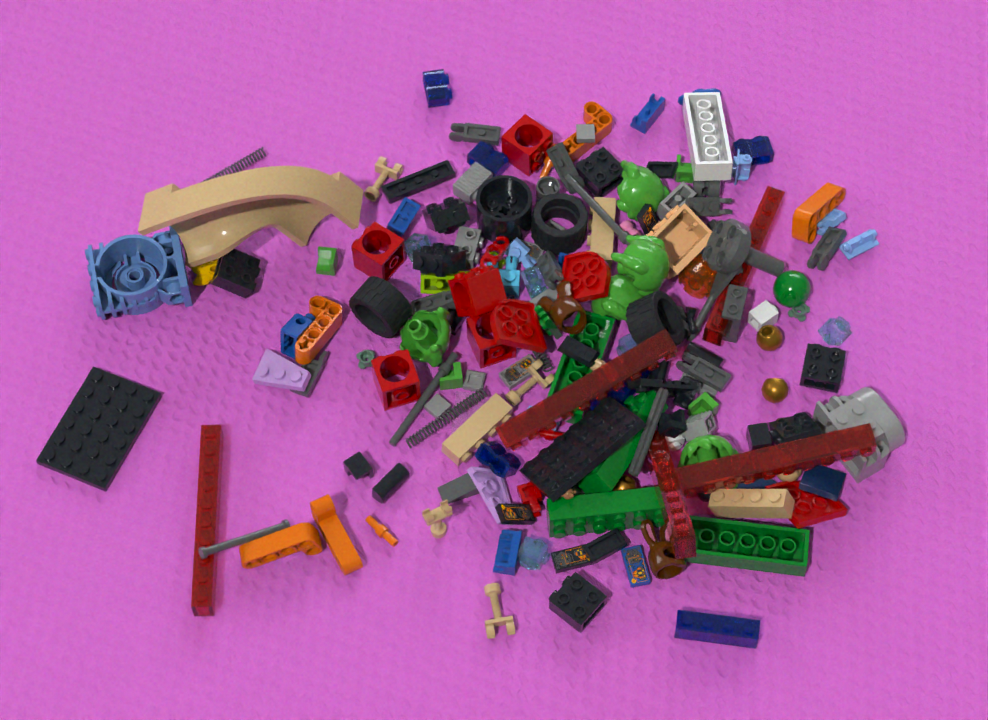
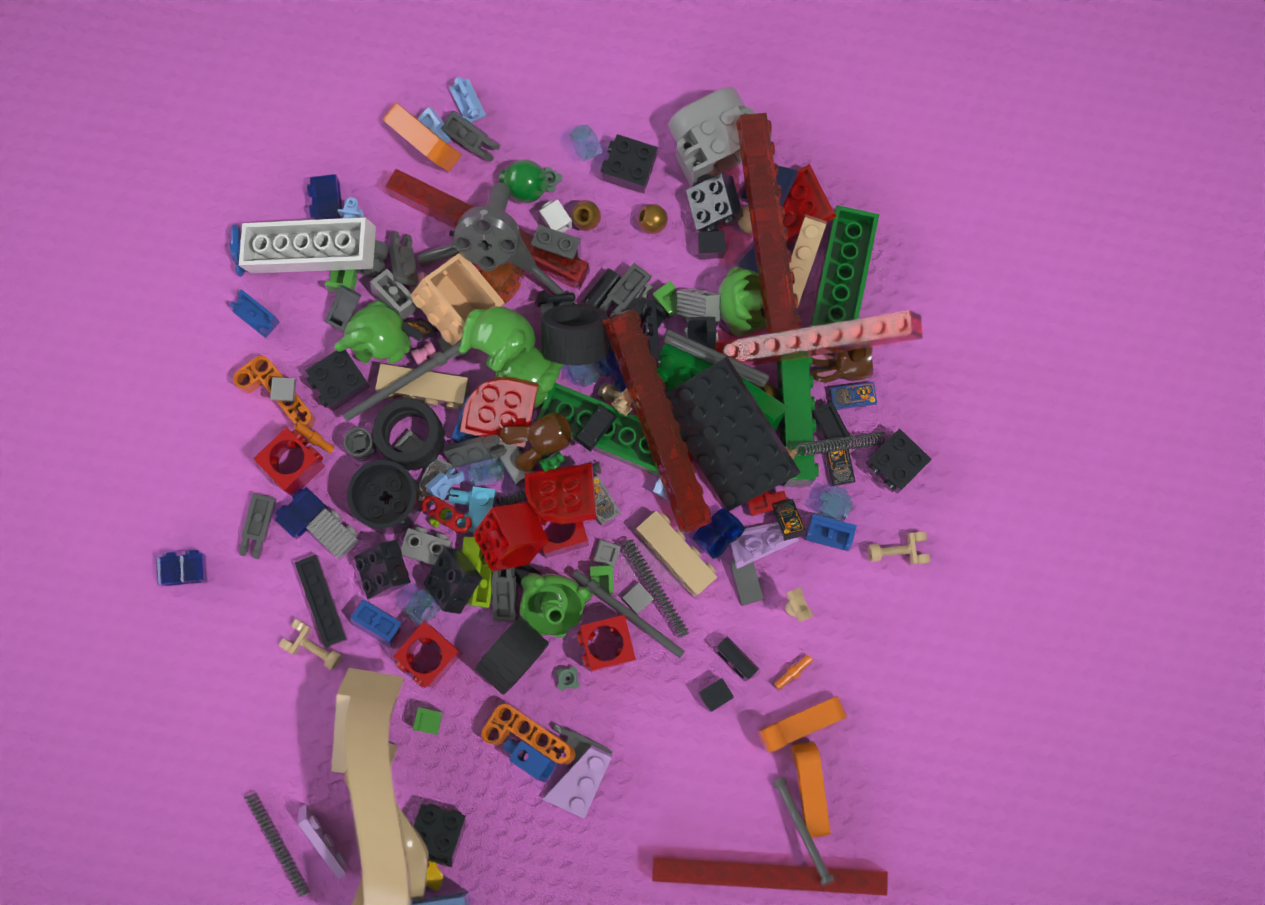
camera: 90 degrees left, 20 degrees up
(514, 396) = (618, 471): tan bar -> none
(564, 165) = (327, 420): dark grey hinge -> none
(586, 544) = (833, 445): none -> dark grey piece
(717, 629) = (935, 318): clear blue brick -> none

